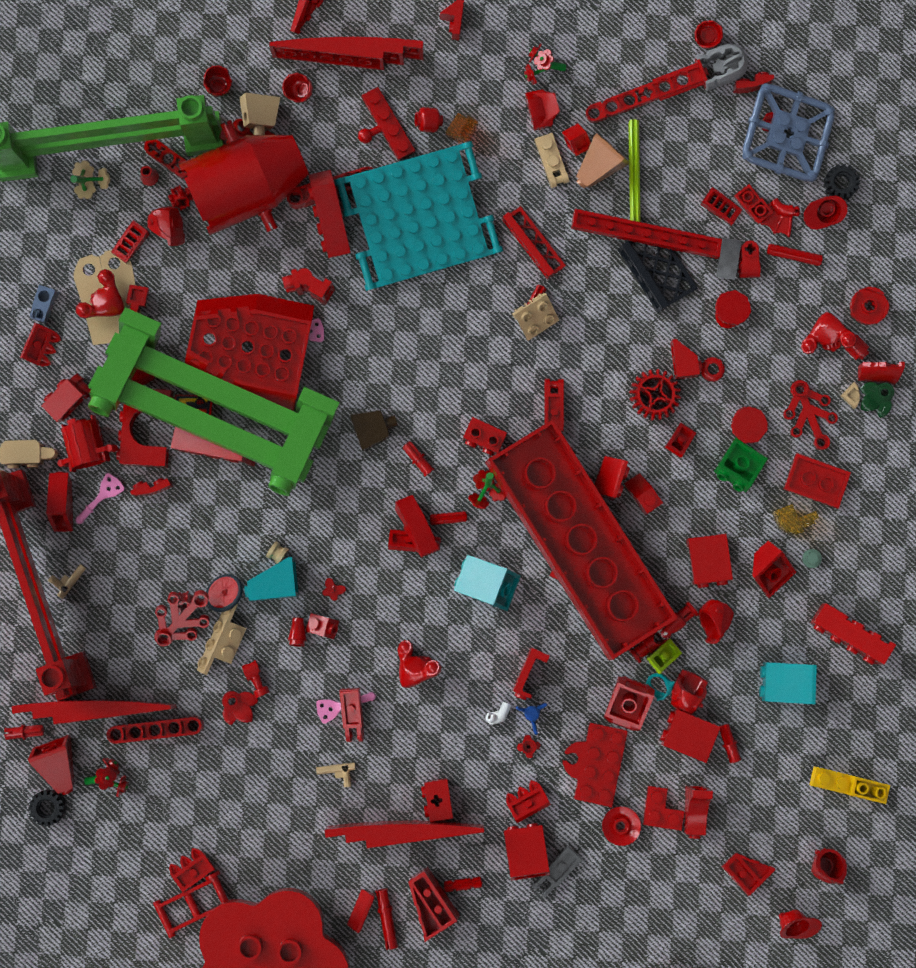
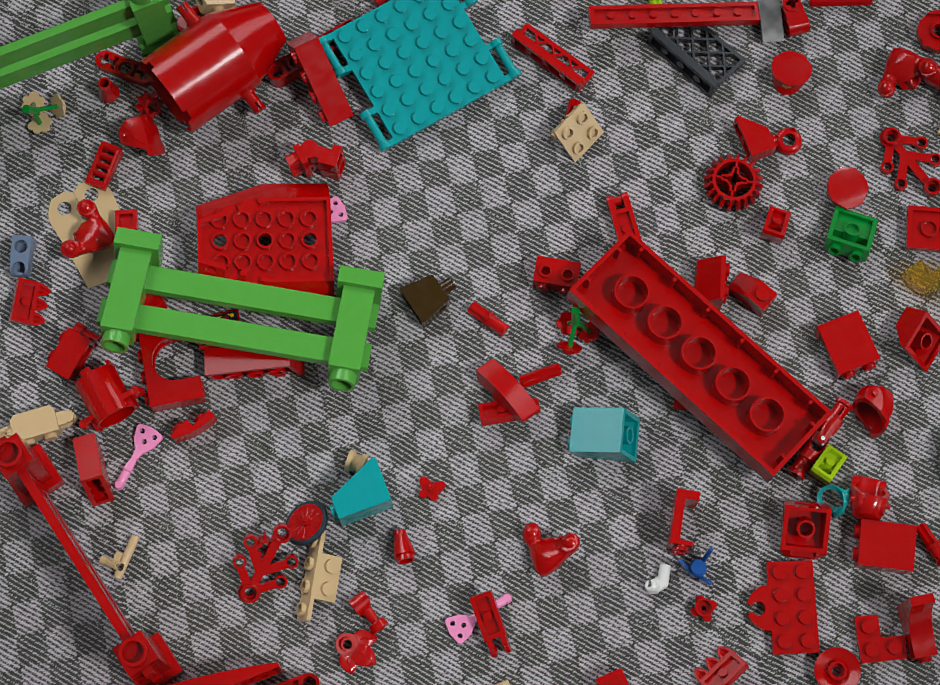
camera: 10 degrees left, 10 degrees down
(322, 626) = (429, 532): red bracket -> none

